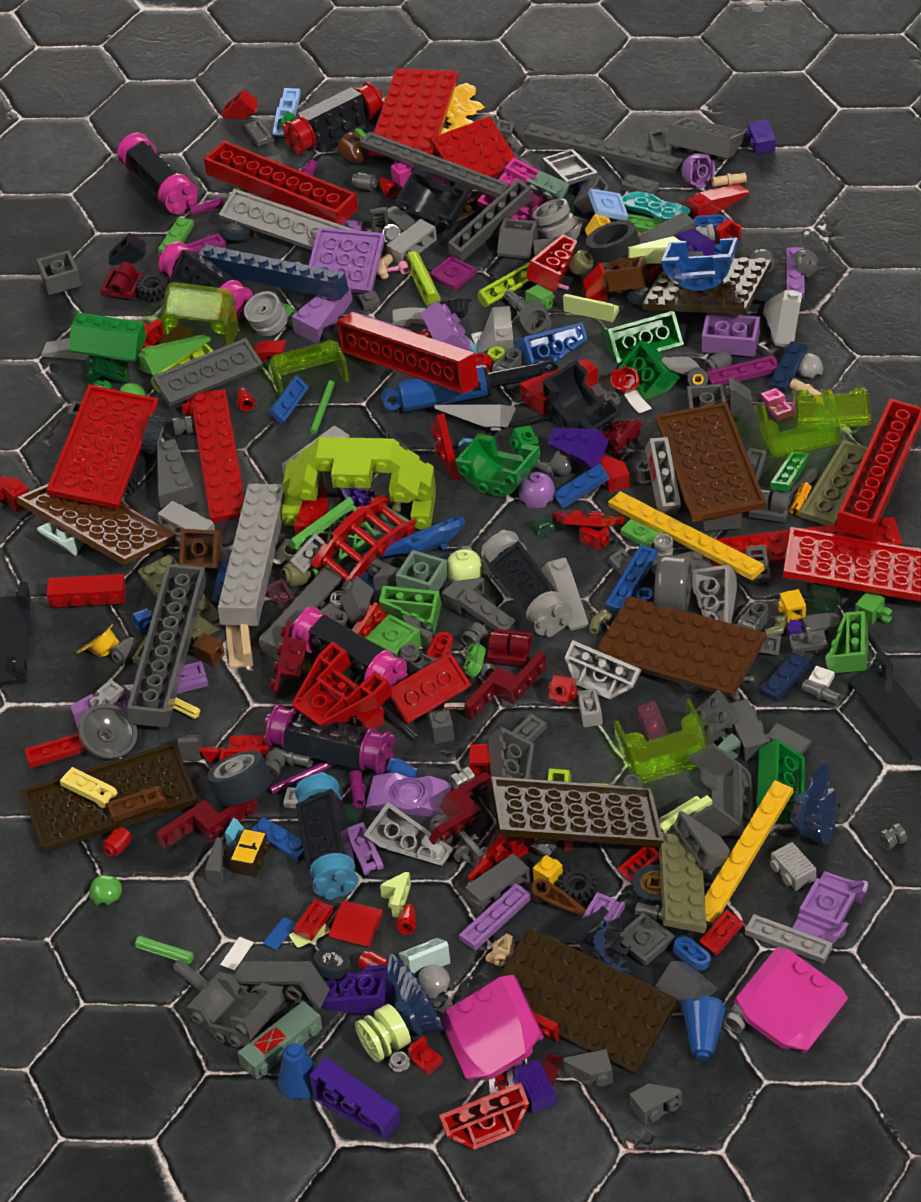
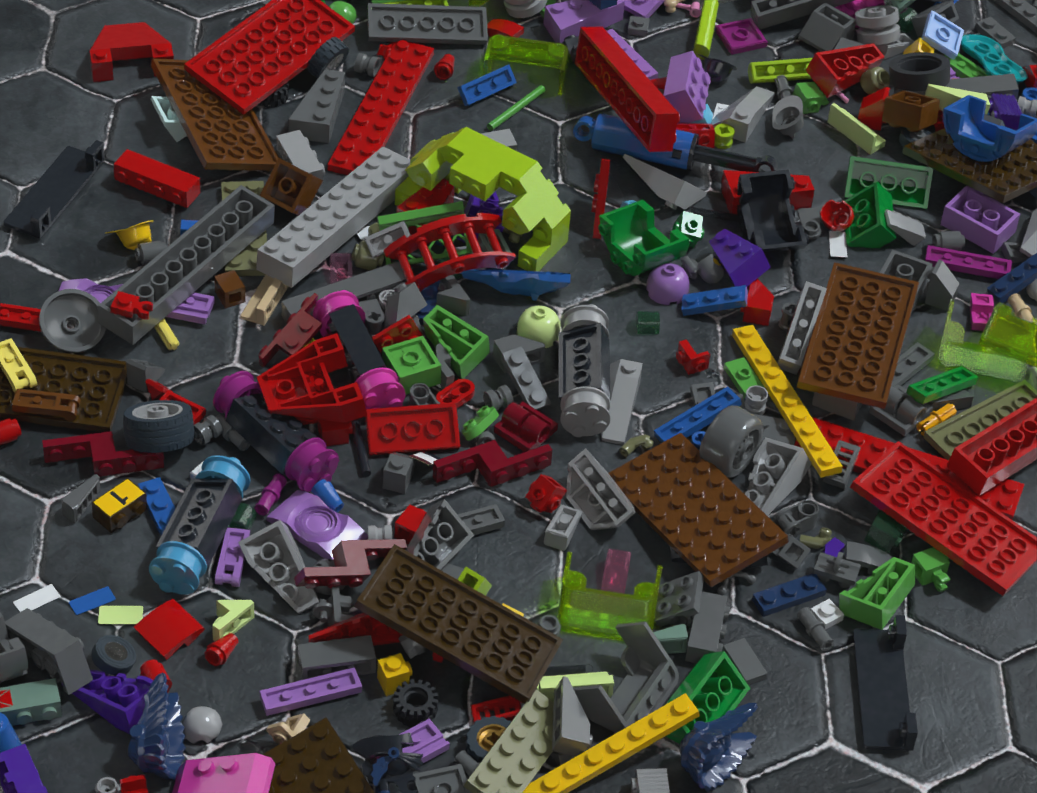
camera: 20 degrees right, 0 degrees up
(108, 694) = (99, 285): light grey plate -> none
(152, 697) = (128, 305): none -> red plate
(233, 833) = (118, 475): medium azure slope -> none
(249, 742) = (199, 396): red plate -> none
(298, 777) = (241, 456): magenta bar -> none
(313, 919) = (130, 602): red plate -> none
(382, 1032) = (106, 750): yellowish green wheel -> none
(405, 316) = (660, 56): light grey slope -> none
(409, 652) = (415, 383): dark grey plate -> none
(422, 572) = (489, 312): sand green brick -> none
(426, 954) = (212, 694): light aqua slope -> none
(510, 359) = (733, 143): dark grey piece -> none
(551, 343) = (787, 146): blue wedge -> none
(555, 897) = (382, 701): reddish brown piece -> none
(594, 518) = (703, 340): red wing -> none
(621, 435) = (791, 269): dark red plate -> none
(697, 377) = (914, 246): dark grey piece -> none
(792, 605) = (847, 523): yellow brick -> none

